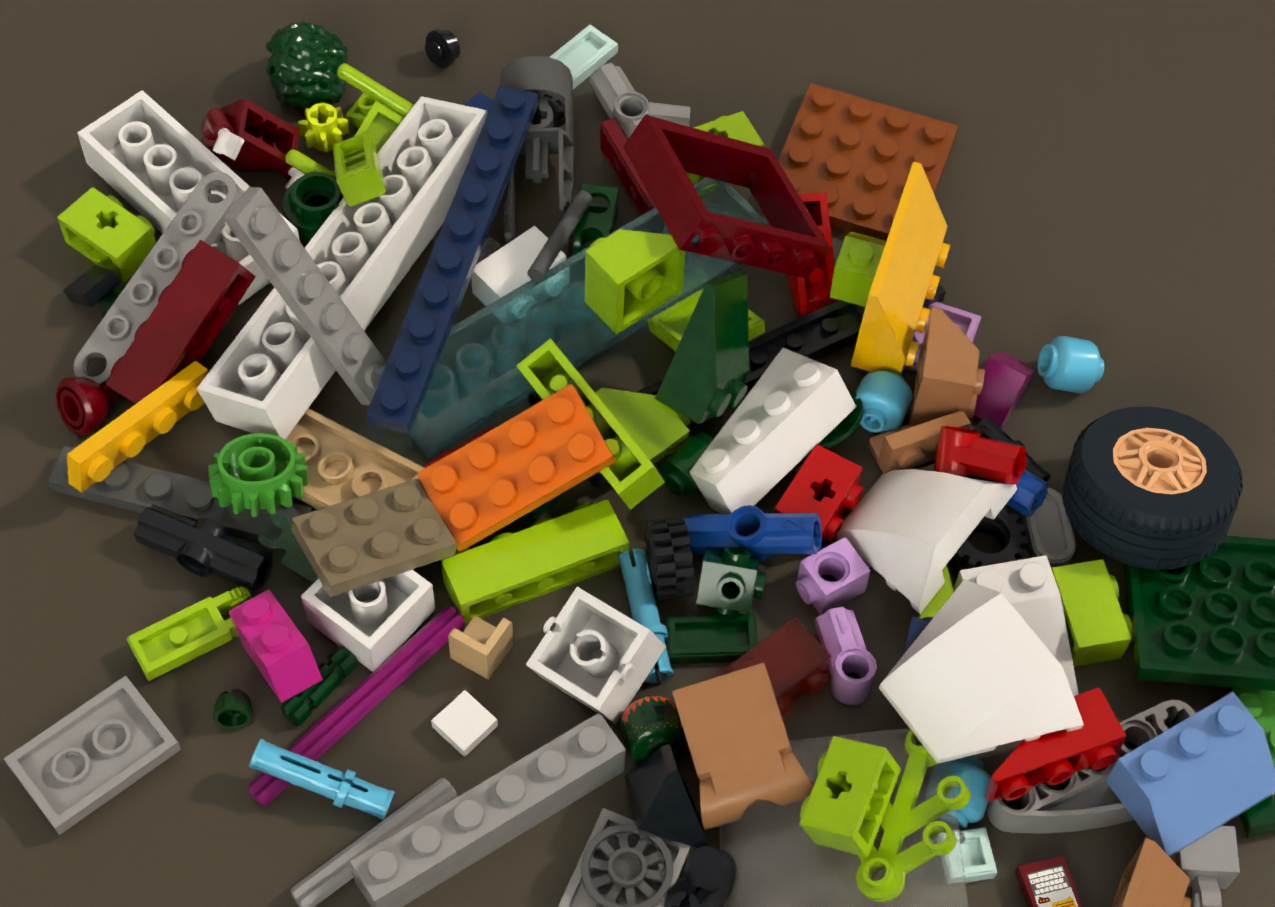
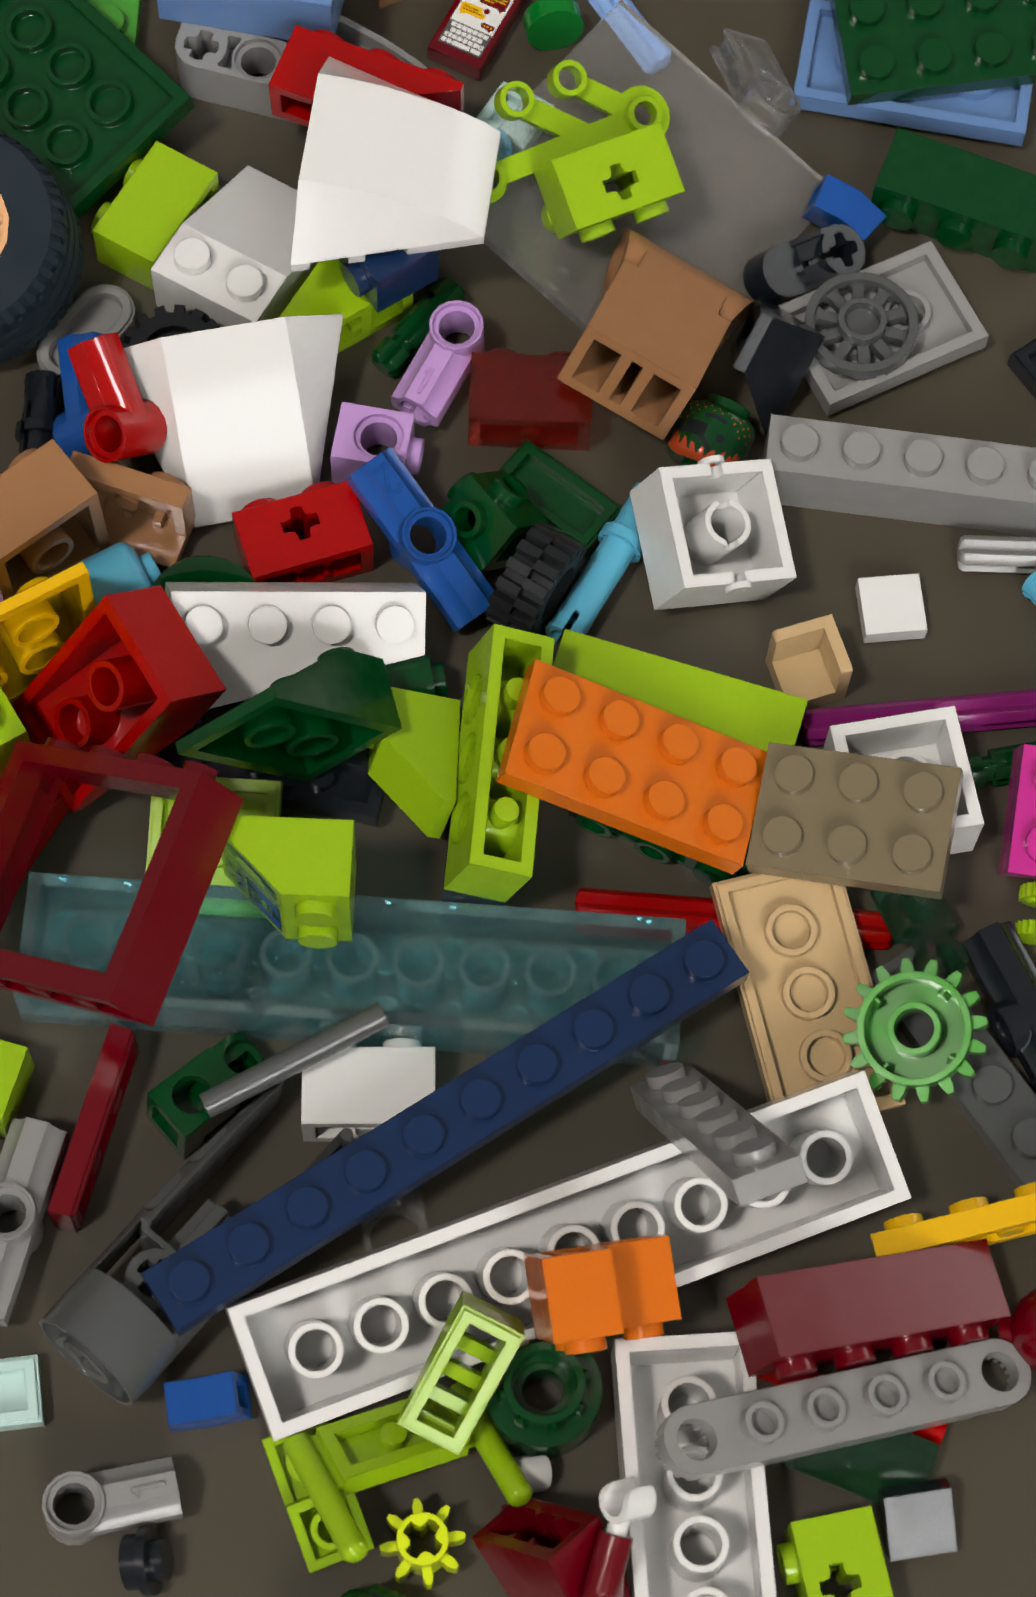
camera: 140 degrees left, 10 degrees up
(326, 207) = (602, 1292): none -> orange brick
(483, 51) = (121, 1499): none -> light grey piece
(809, 323) = (121, 683): none -> red slope
(881, 647) = (410, 332): none -> dark green axle

